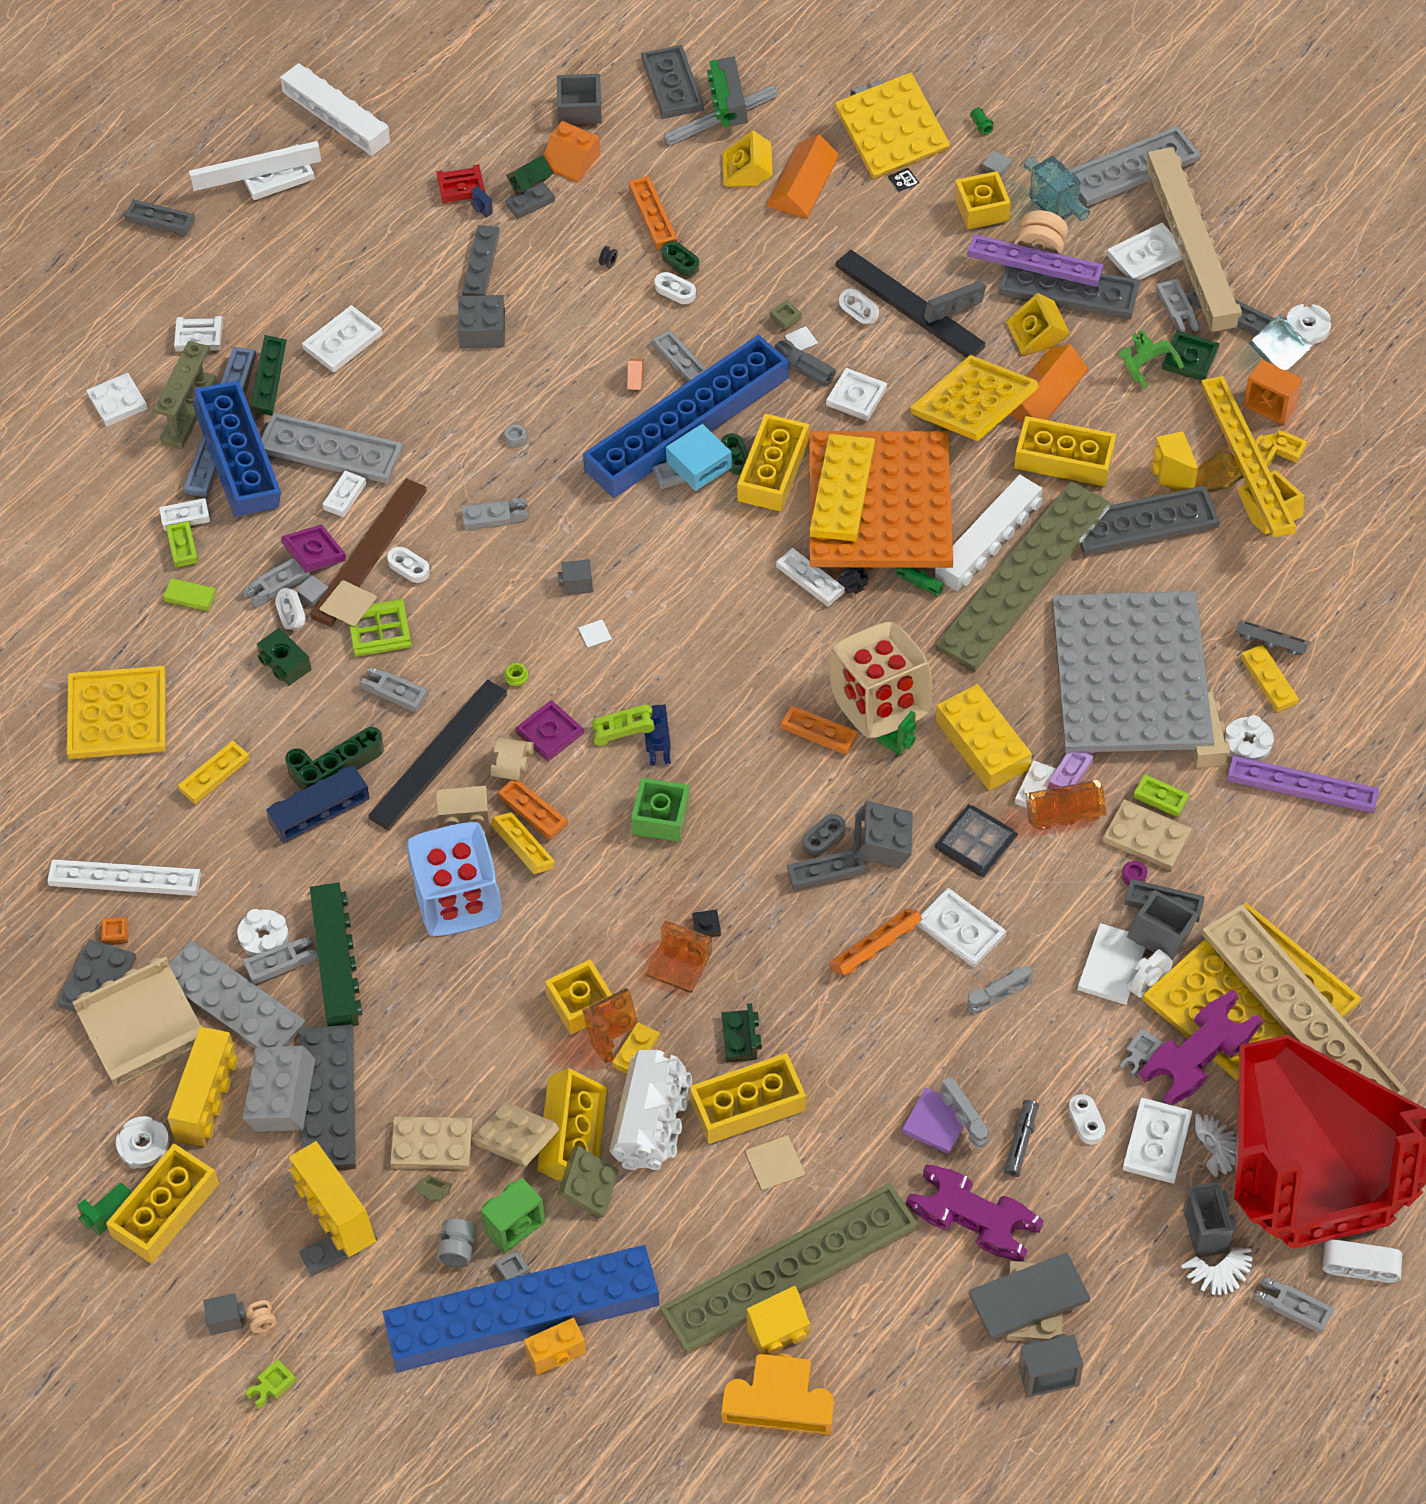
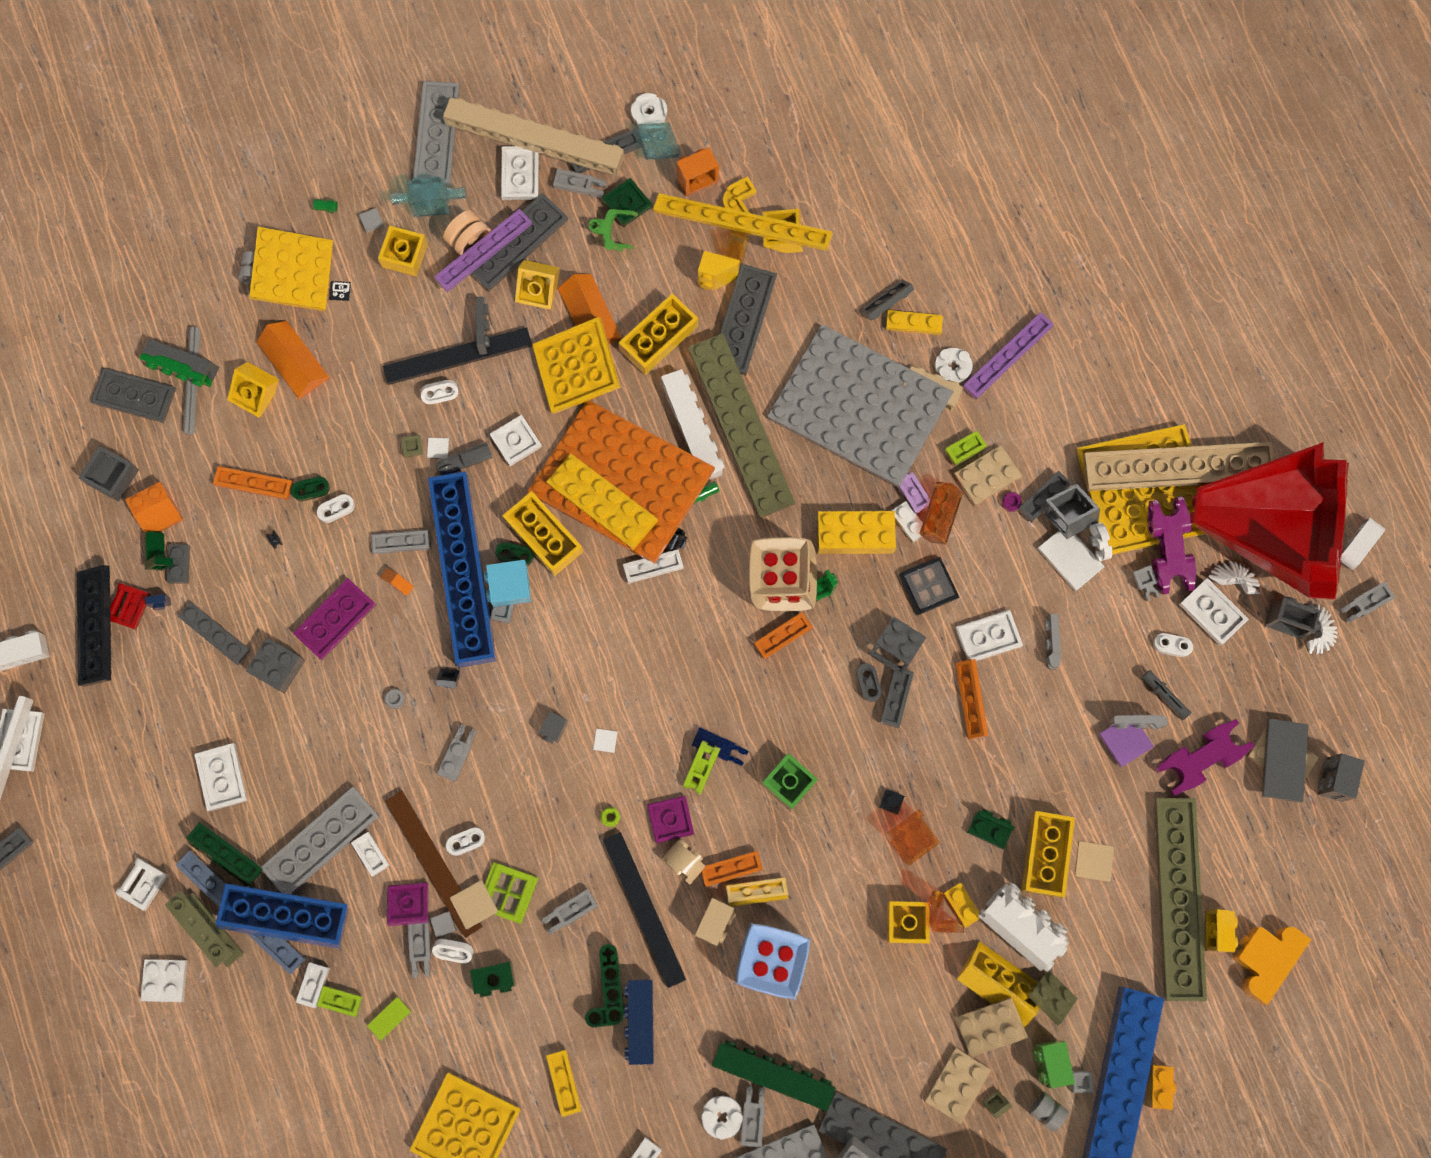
camera: 65 degrees left, 20 degrees up
(424, 165) = (93, 626): none -> black plate
(562, 344) = (334, 619): none -> magenta plate
(566, 464) = (448, 678): none -> black plate

